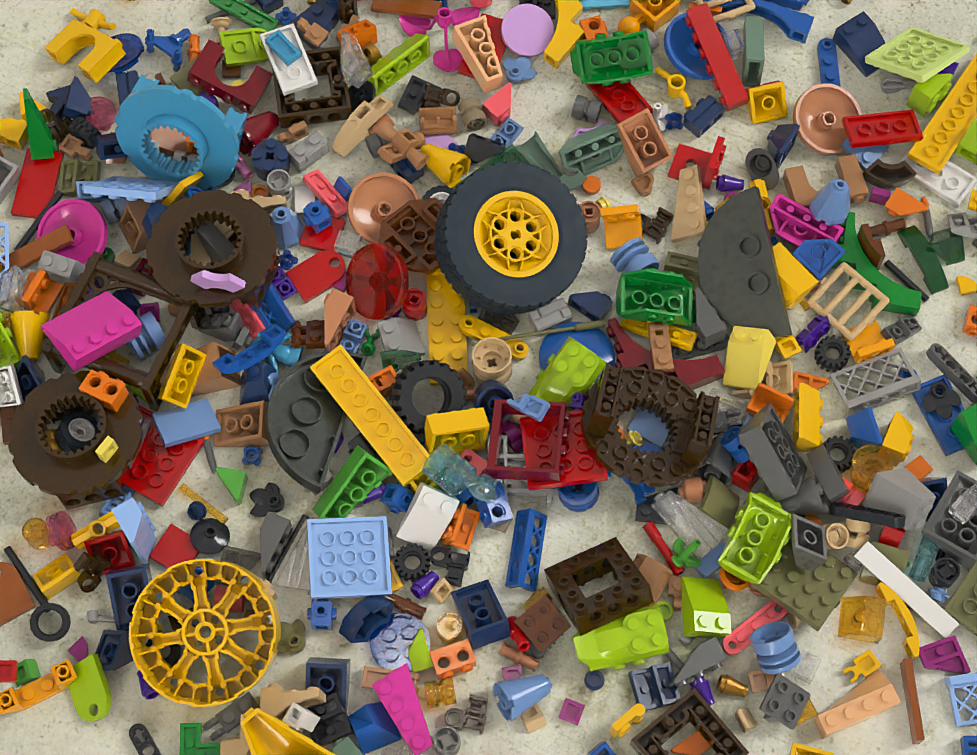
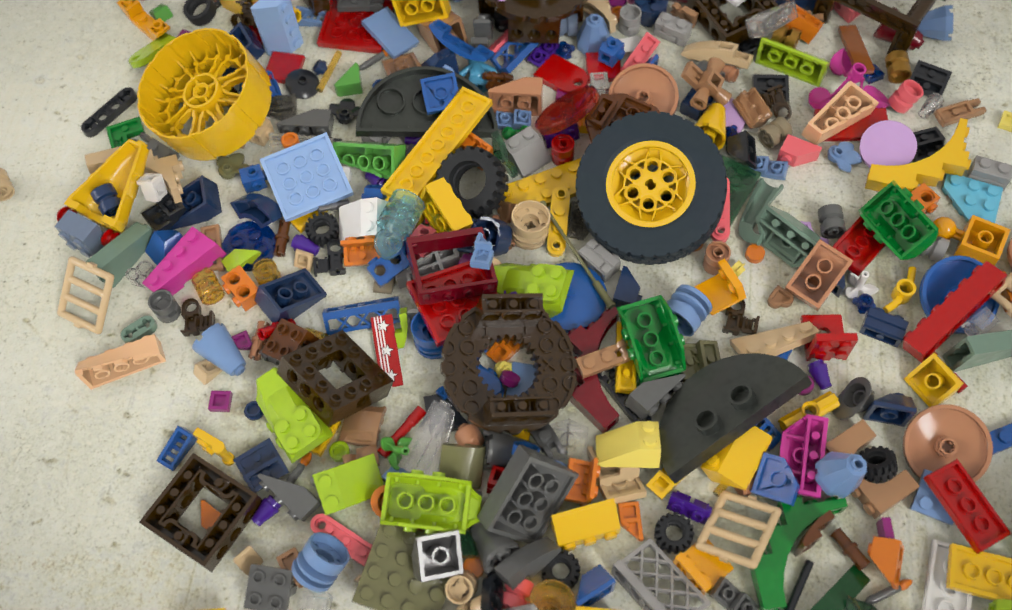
camera: 75 degrees right, 5 degrees down
(294, 562) = (289, 139): none -> orange tile
(308, 391) = (438, 92): none -> blue plate
(559, 516) = (401, 333): none -> lime slope
(569, 537) = (386, 347): none -> red sticker
(649, 434) = (509, 378): none -> magenta tile
(731, 686) = (278, 535): pearl gold cone -> none
(820, 168) = (880, 464): none -> black tyre
(888, 175) = (914, 531): dark brown brick -> none

